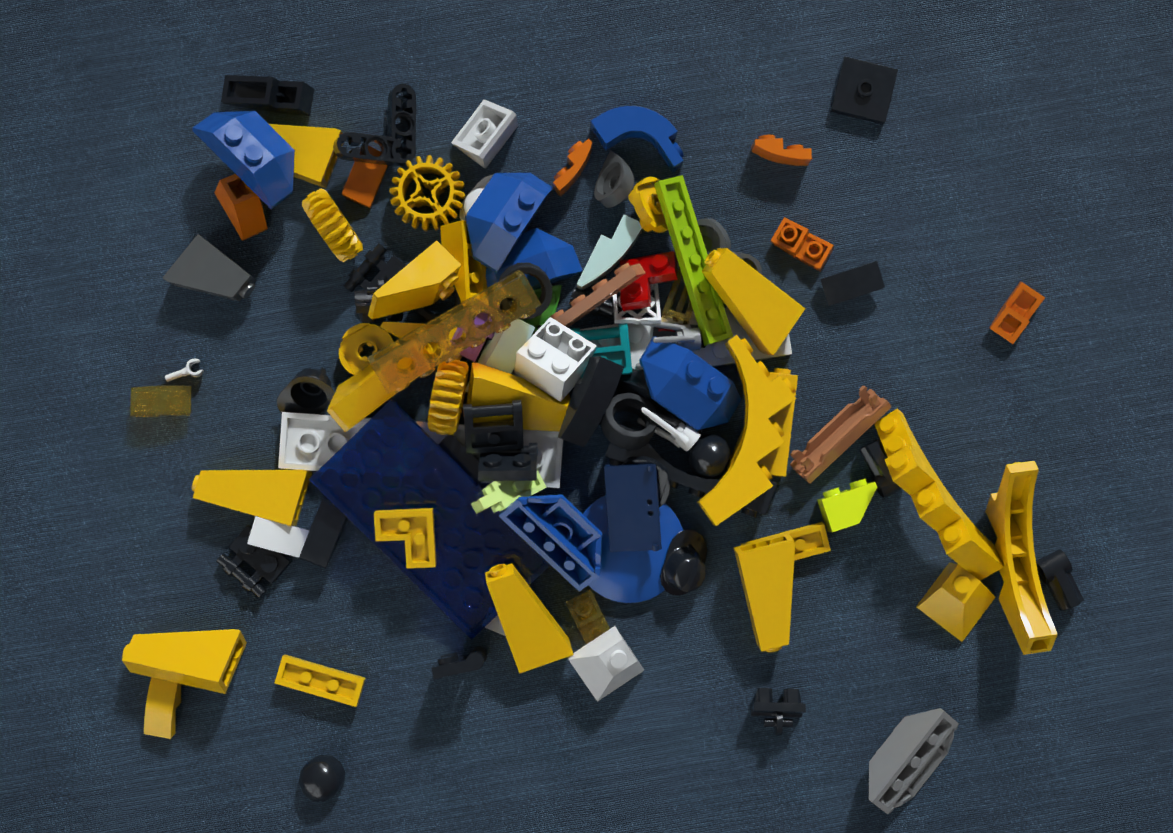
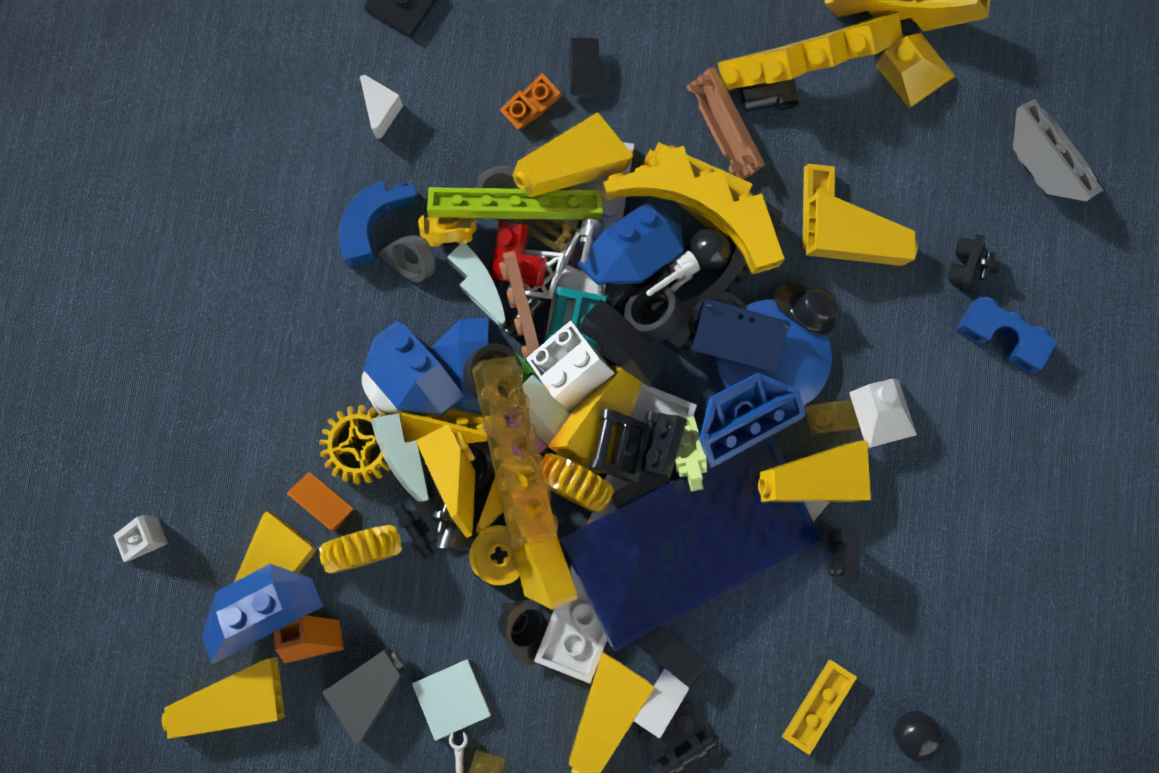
camera: 70 degrees left, 5 degrees down
(168, 161) = (234, 702): none -> yellow slope
(228, 350) = (451, 699): none -> light aqua tile
(268, 94) = (202, 576): black slope -> none
(285, 28) = (140, 537): none -> white slope
(388, 144) = (296, 467): black beam -> none
(414, 527) = (695, 558): yellow plate -> none
(426, 232) = (400, 456): none -> light aqua slope
(486, 132) = (317, 368): white slope -> none
(577, 159) = (375, 285): orange slope -> none
(714, 784) = (1029, 344): none -> blue arch
(750, 105) = (381, 105): none -> white slope
(772, 149) = (433, 97): orange slope -> none
(846, 507) = (797, 138): neon yellow slope -> none

